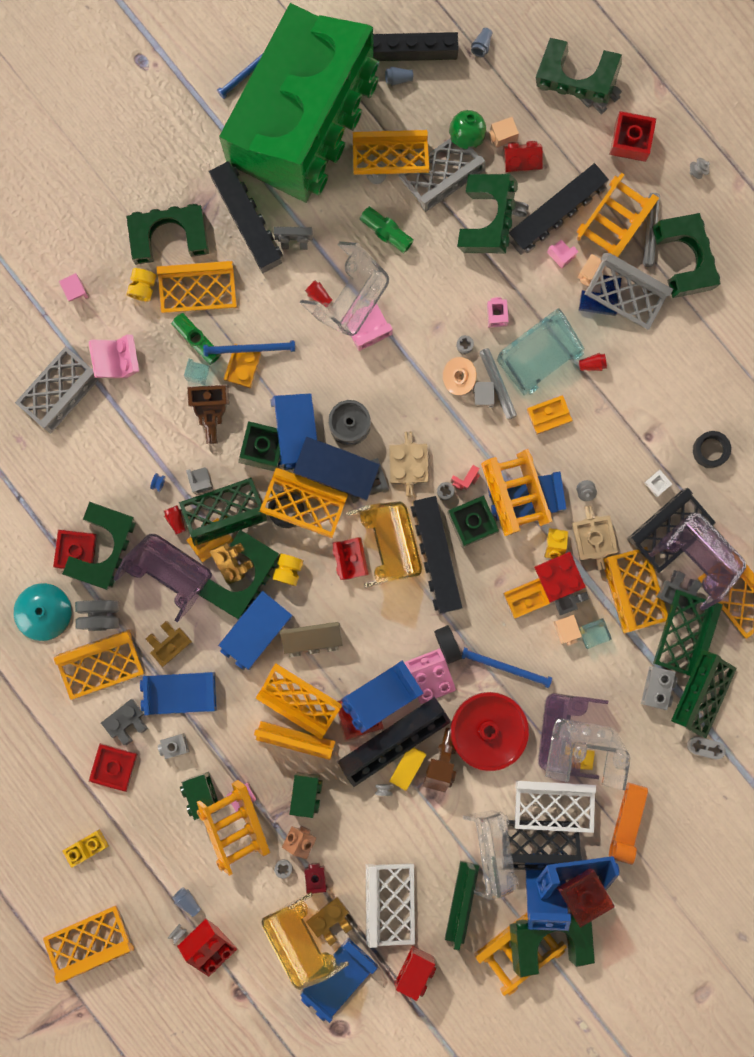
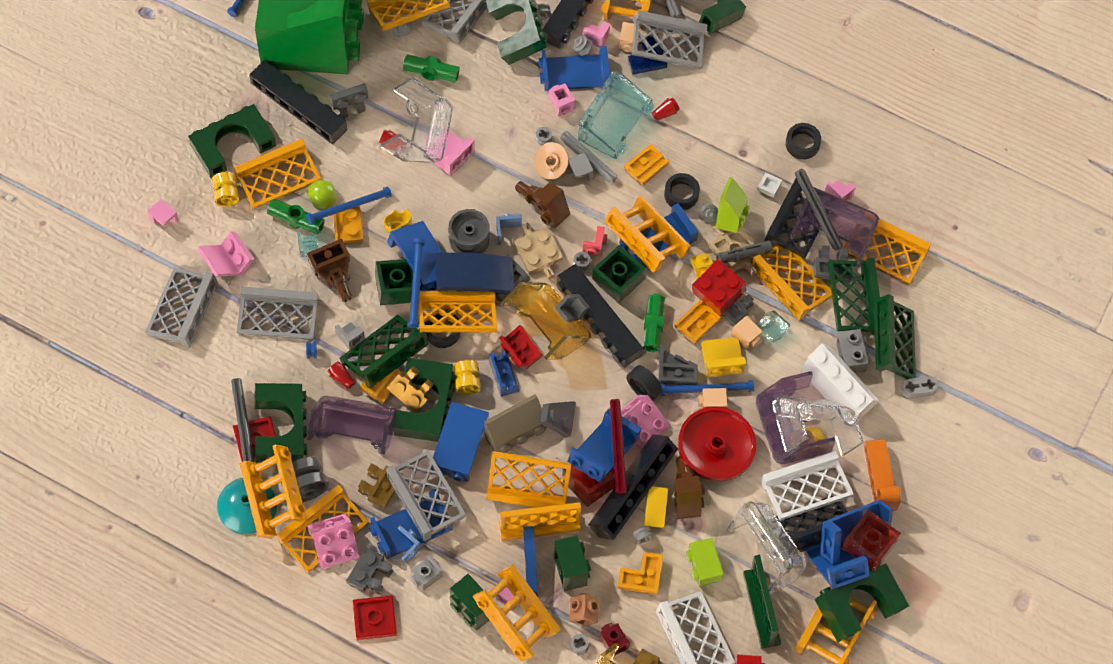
camera: 25 degrees left, 20 degrees down
(48, 620) = (257, 488): none -> light orange fence
(66, 533) = (242, 419): none -> dark grey axle
(102, 681) = (334, 540): none -> bright pink bracket
(144, 416) = (282, 297): none -> light grey fence
(173, 708) = (415, 548): none -> medium blue bracket
(183, 674) = (411, 504): none -> light grey fence
(230, 324) = (322, 194): none -> lime hair
(269, 777) = (530, 560): none -> blue beam
(275, 460) = (419, 243): none -> blue bar
(288, 383) = (397, 220): none -> yellow hair
(324, 578) = (503, 374): none -> blue hinge
(356, 644) = (559, 417): none -> dark grey wing
(367, 833) = (642, 580): none -> light orange plate
(391, 421) = (507, 221): none -> medium blue bracket
(393, 704) = (618, 448): none -> dark red axle
(412, 542) = (572, 308): none -> dark grey panel
(427, 842) = (704, 562): none -> lime brick
(437, 423) = (548, 200): none -> reddish brown brick
(485, 583) = (654, 323): none -> green piece
(485, 638) = (676, 370): none -> dark grey wing
(505, 685) = (713, 398): none -> light nougat brick
(524, 285) = (575, 71): none -> blue panel
(534, 643) = (722, 357): none -> yellow bracket
(542, 262) = (582, 45): none -> light grey wheel
(571, 442) = (682, 178): none -> black tyre
(600, 548) = (737, 254): none -> dark grey pin
(610, 498) = (732, 207): none -> lime slope
(631, 718) = (838, 382): none -> white slope
(690, 538) = (818, 209): none -> dark grey axle
(723, 516) = (839, 190): none -> bright pink panel

